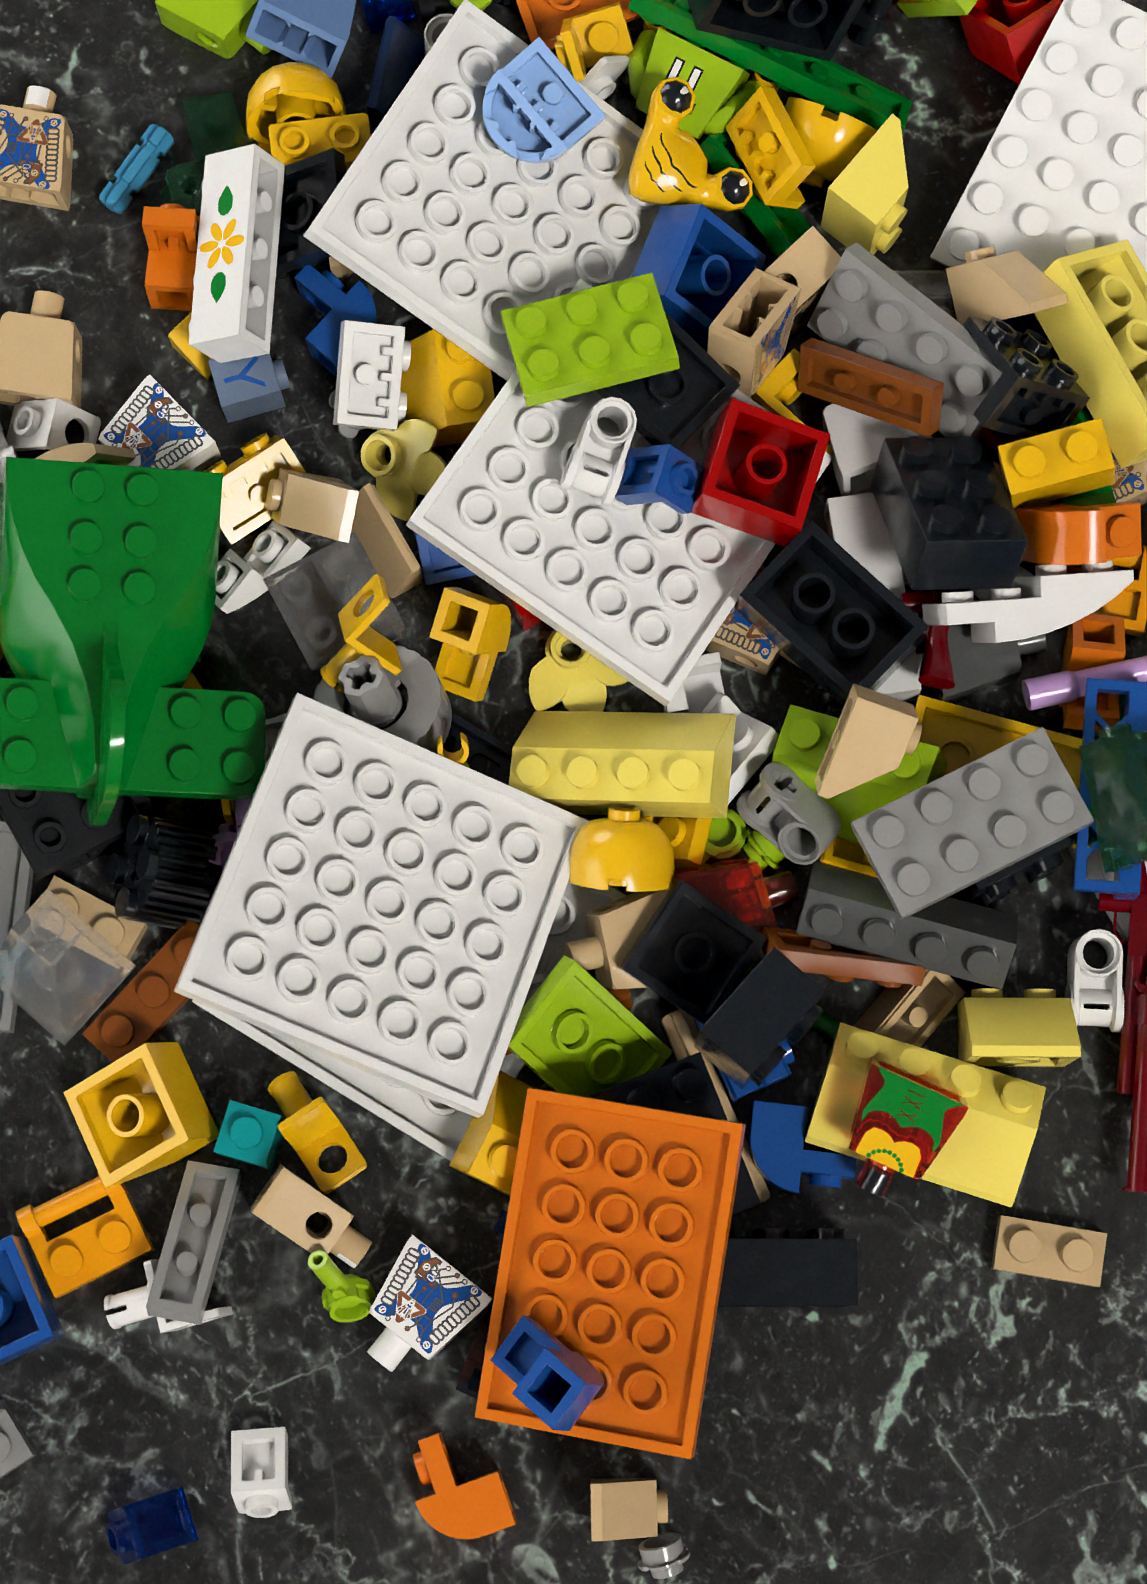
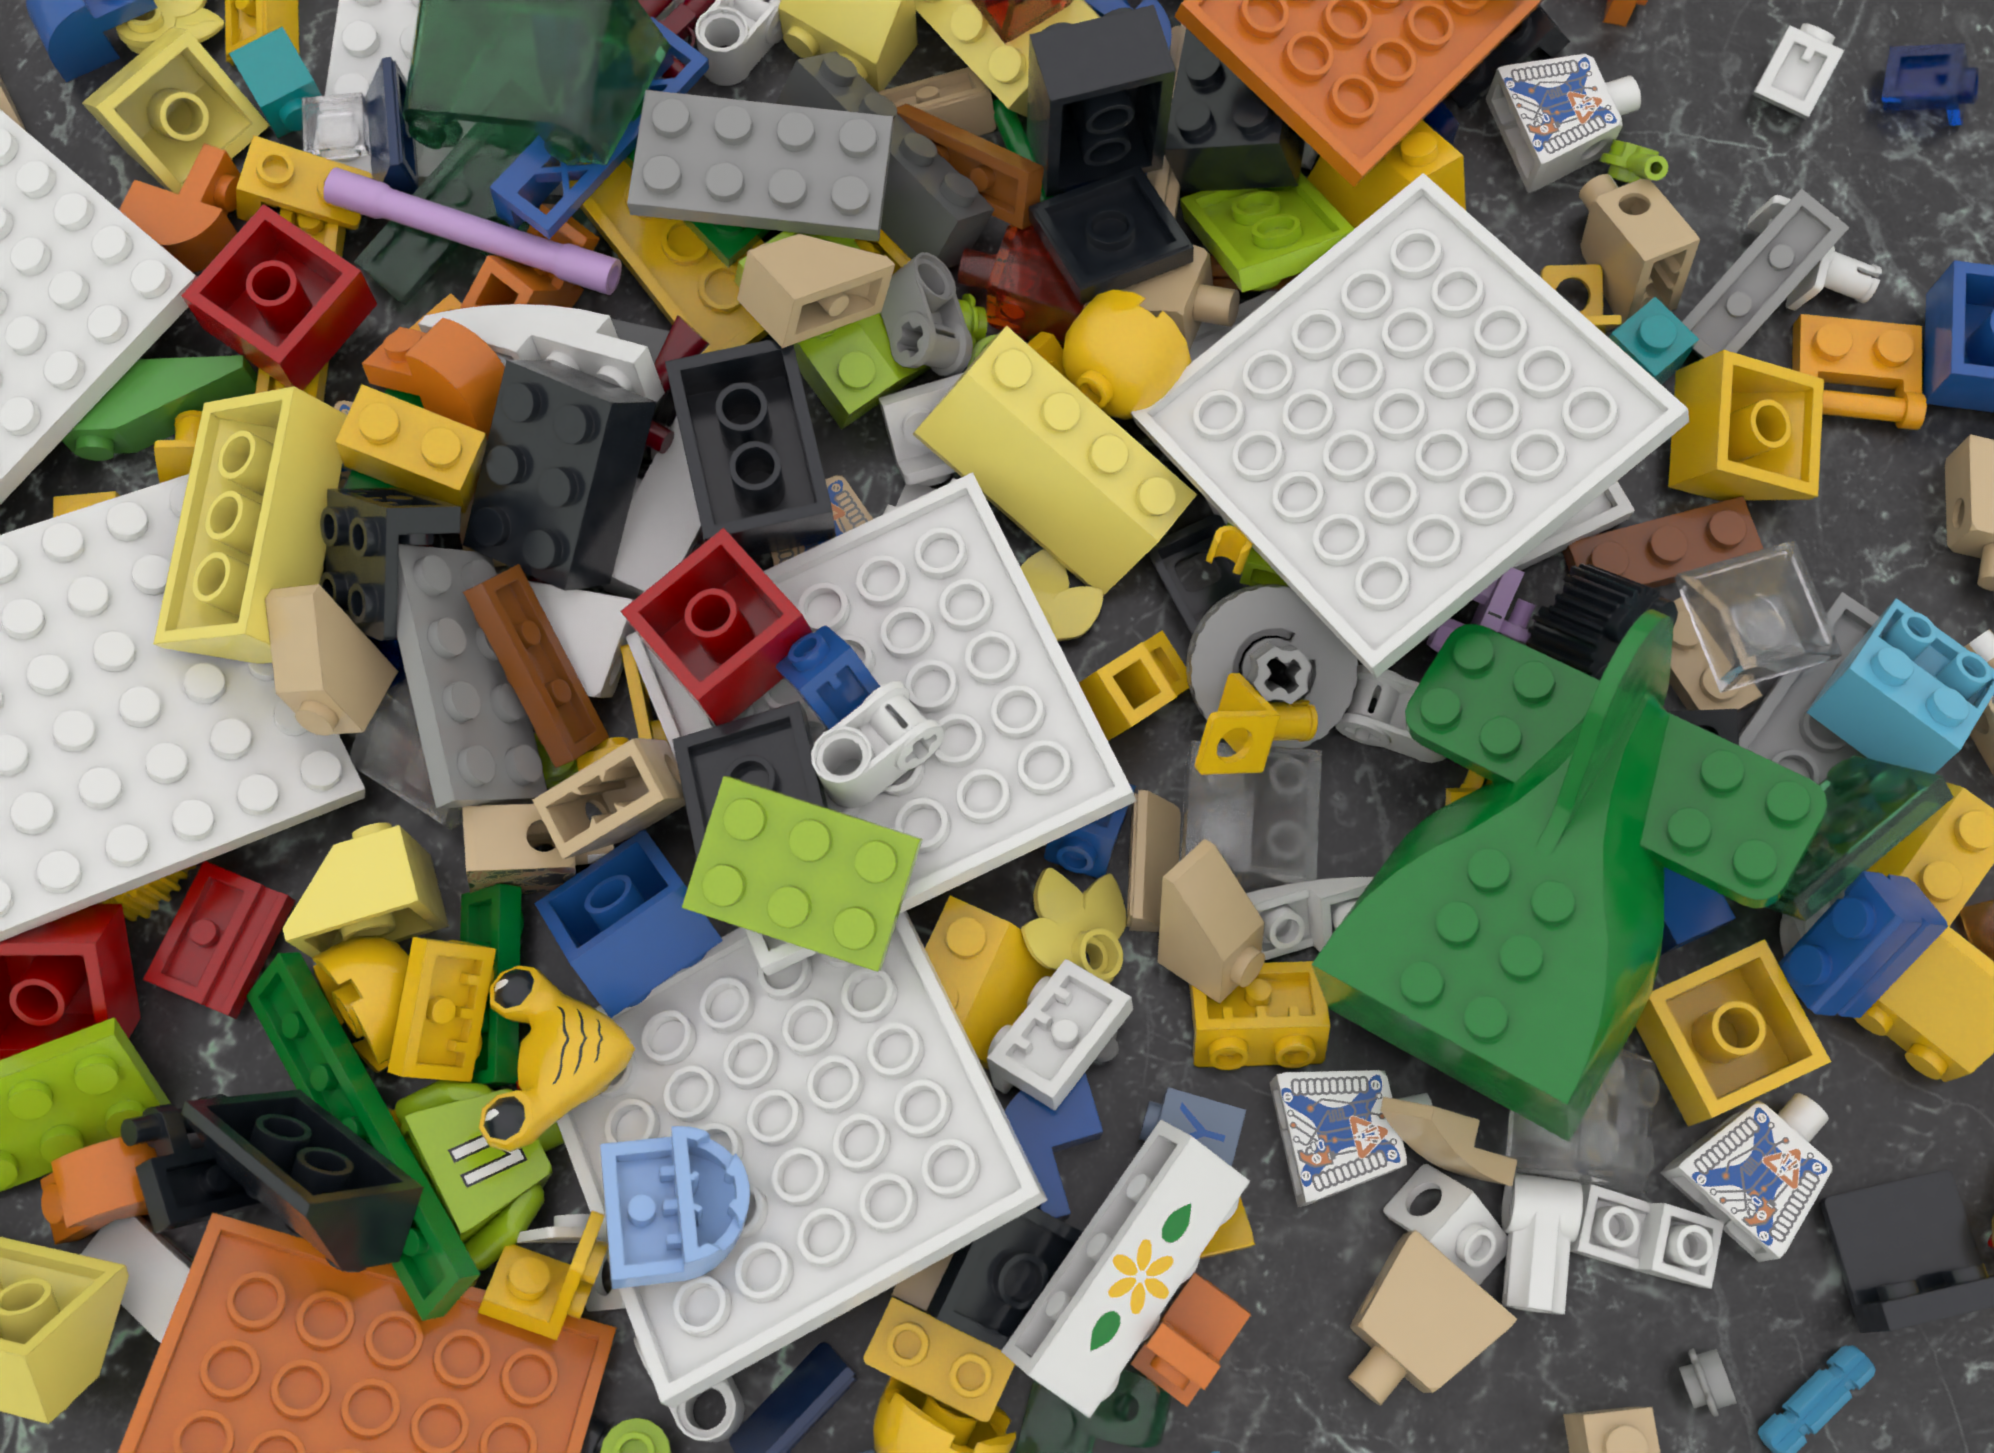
camera: 150 degrees left, 5 degrees down
(952, 119) = (219, 939): none -> red plate

